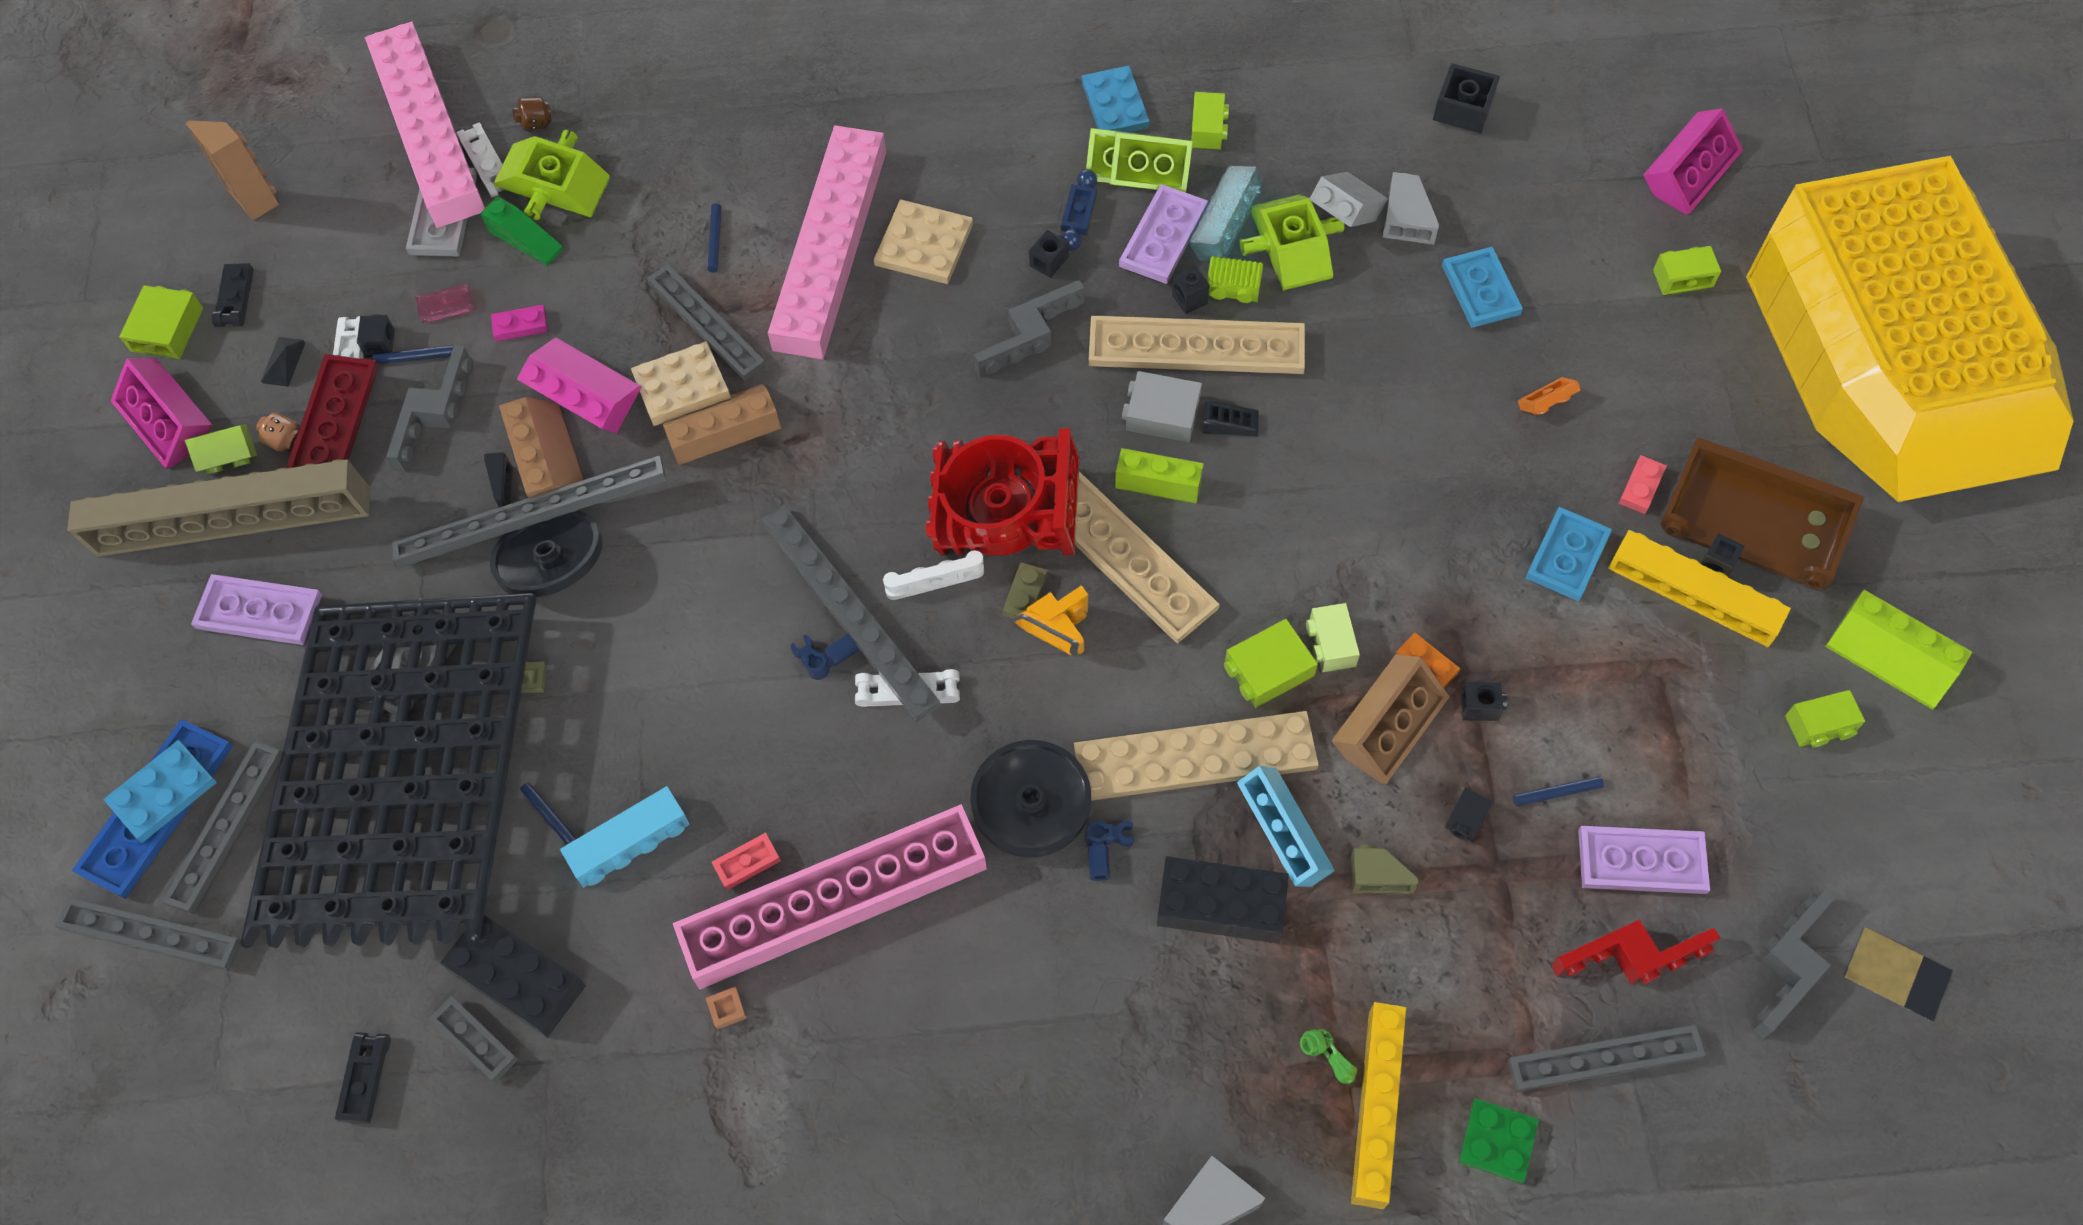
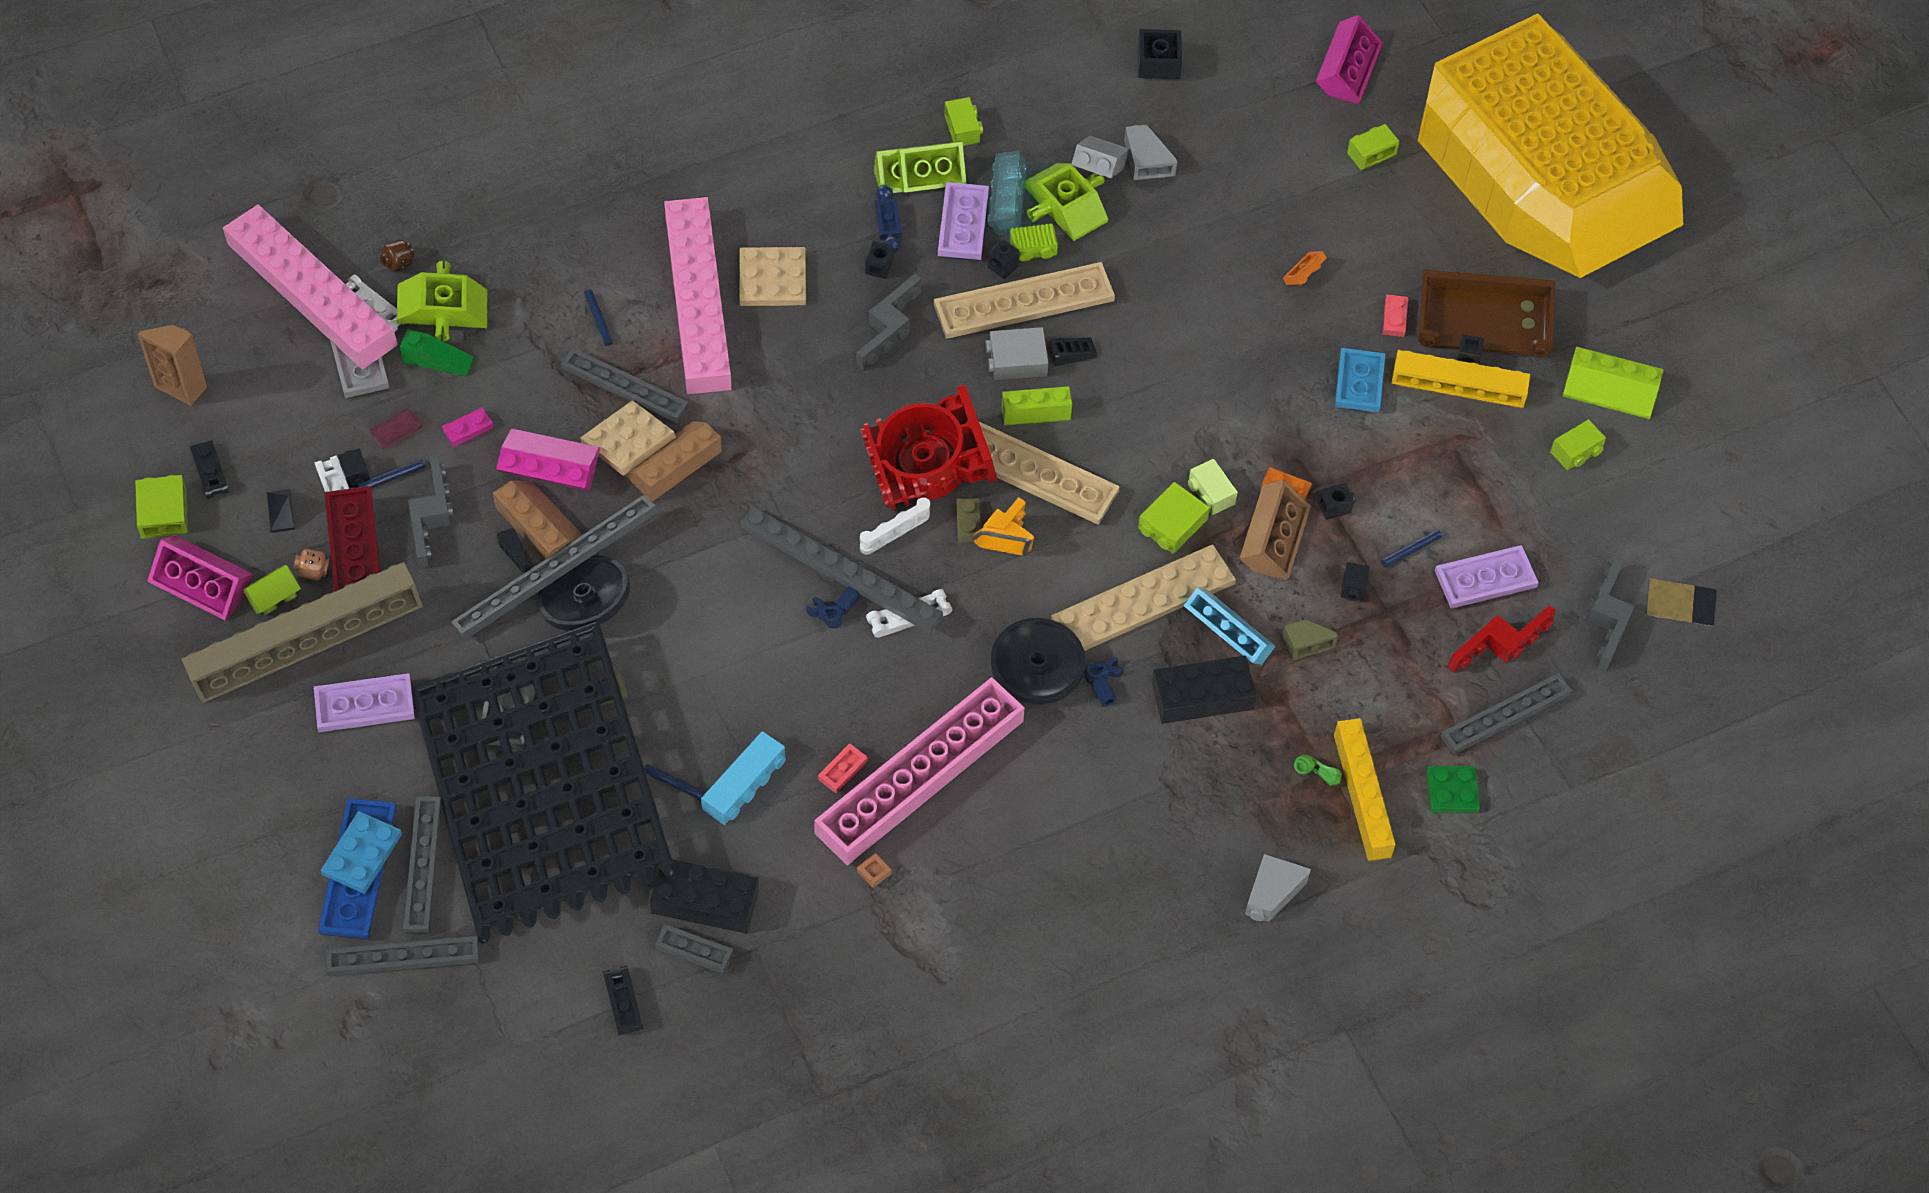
camera: 25 degrees left, 5 degrees down
(1115, 100) = (879, 124): dark azure plate -> none
(1481, 287) = (1224, 199): dark azure plate -> none

